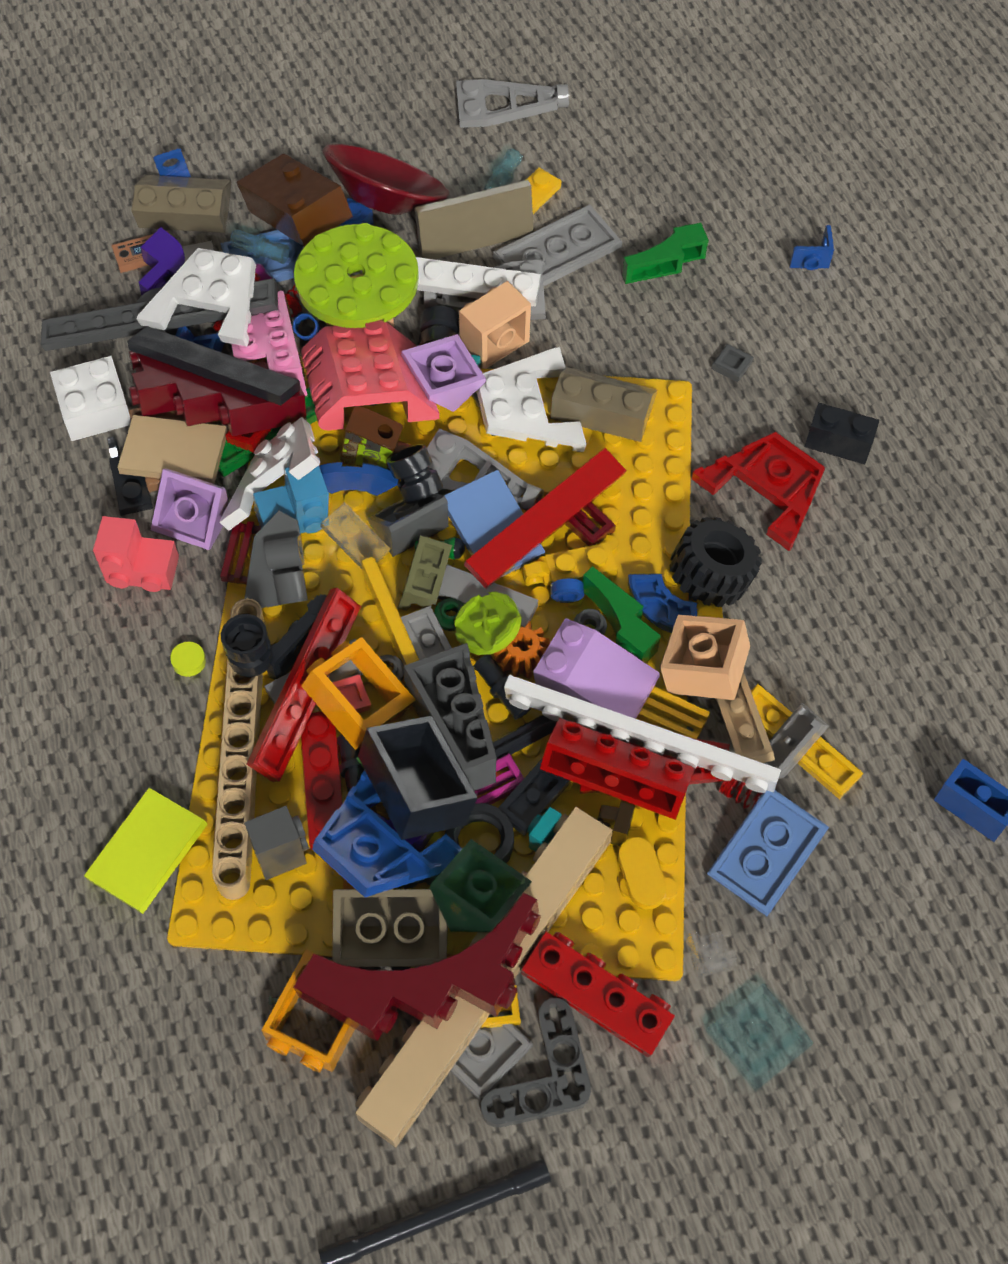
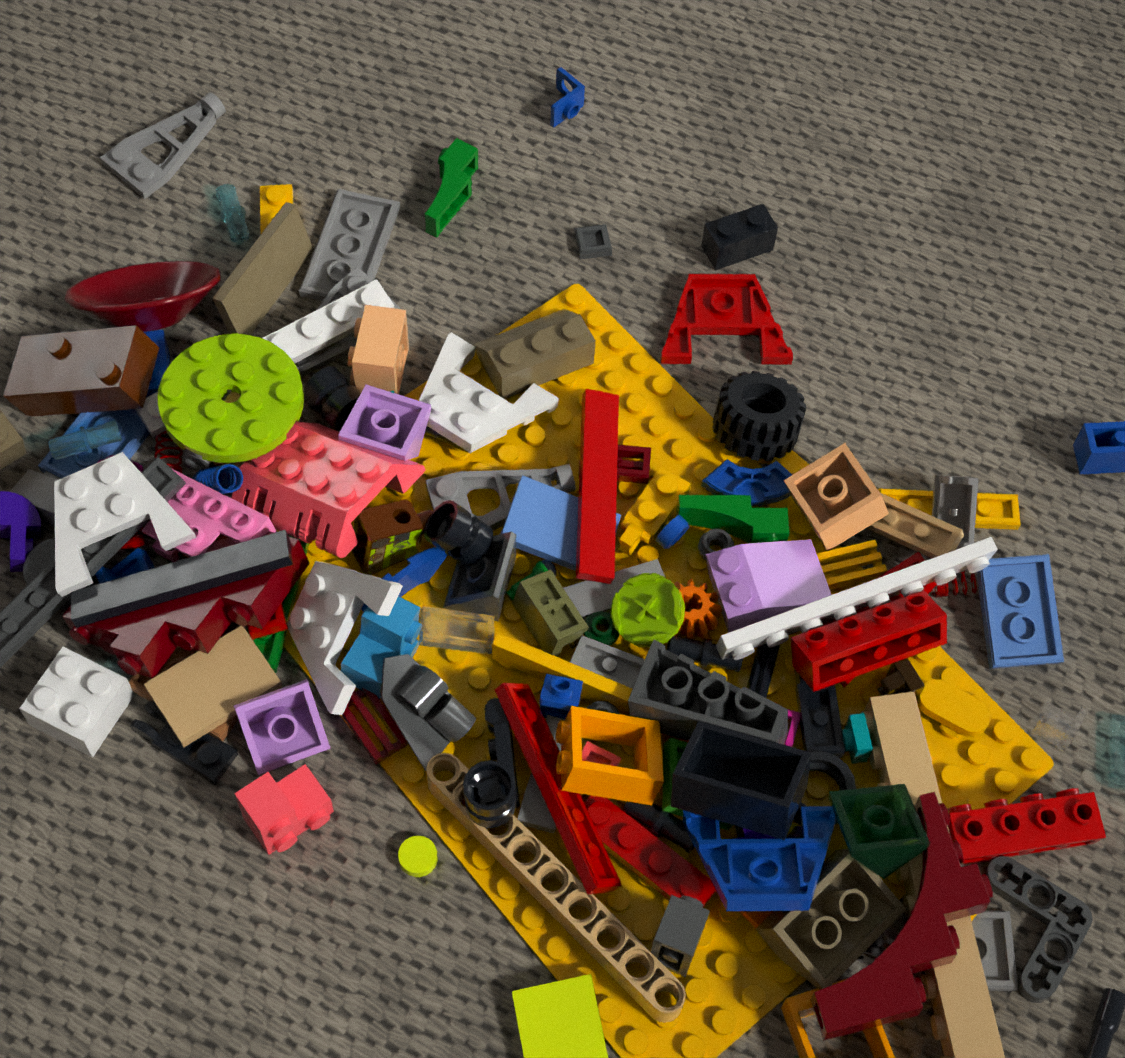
camera: 45 degrees left, 0 degrees up
(371, 628) = (559, 695): none -> blue bracket

